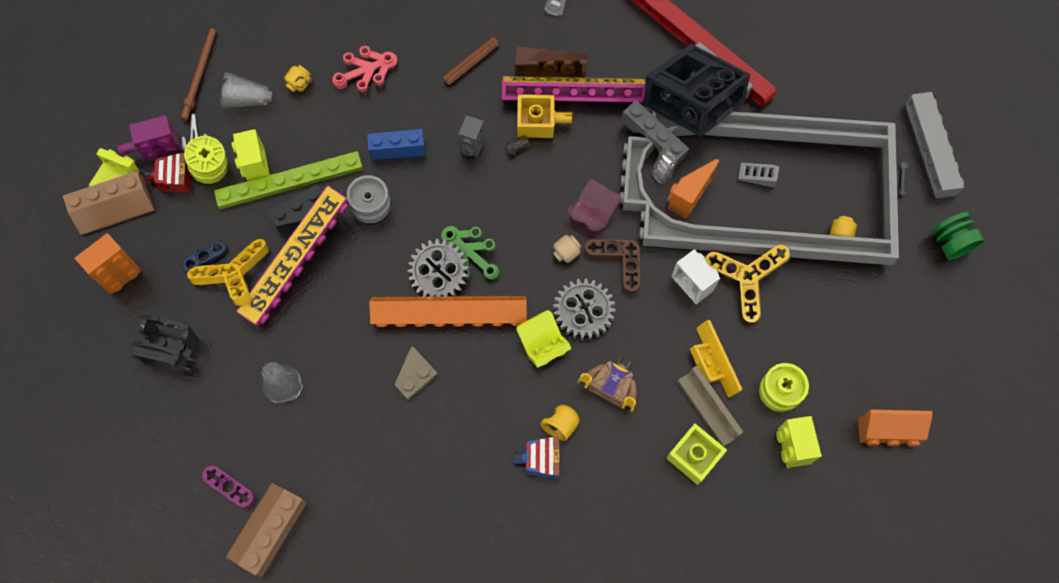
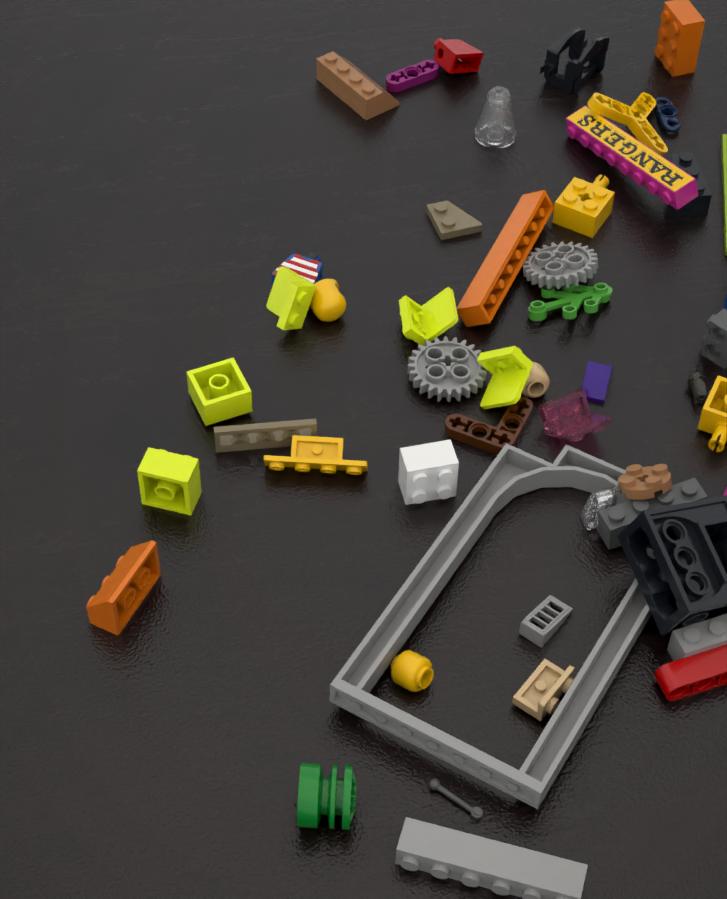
camera: 115 degrees right, 20 degrees down
(192, 454) = (457, 56): none -> red torso
(355, 266) = (584, 206): none -> yellow brick
(368, 199) = (676, 235): light grey wheel -> none
(539, 210) = (596, 381): none -> dark purple slope
(575, 446) = (290, 298): none -> neon yellow bracket
(585, 260) = (509, 374): none -> neon yellow bracket
(612, 383) = (344, 358): torso -> none
(650, 145) = (642, 482): none -> medium nougat plate
(690, 189) = (548, 518): orange slope -> none
(746, 285) = (400, 531): yellow piece -> none
(794, 390) = (242, 503): neon yellow wheel -> none
(810, 154) = (543, 689): none -> tan bracket

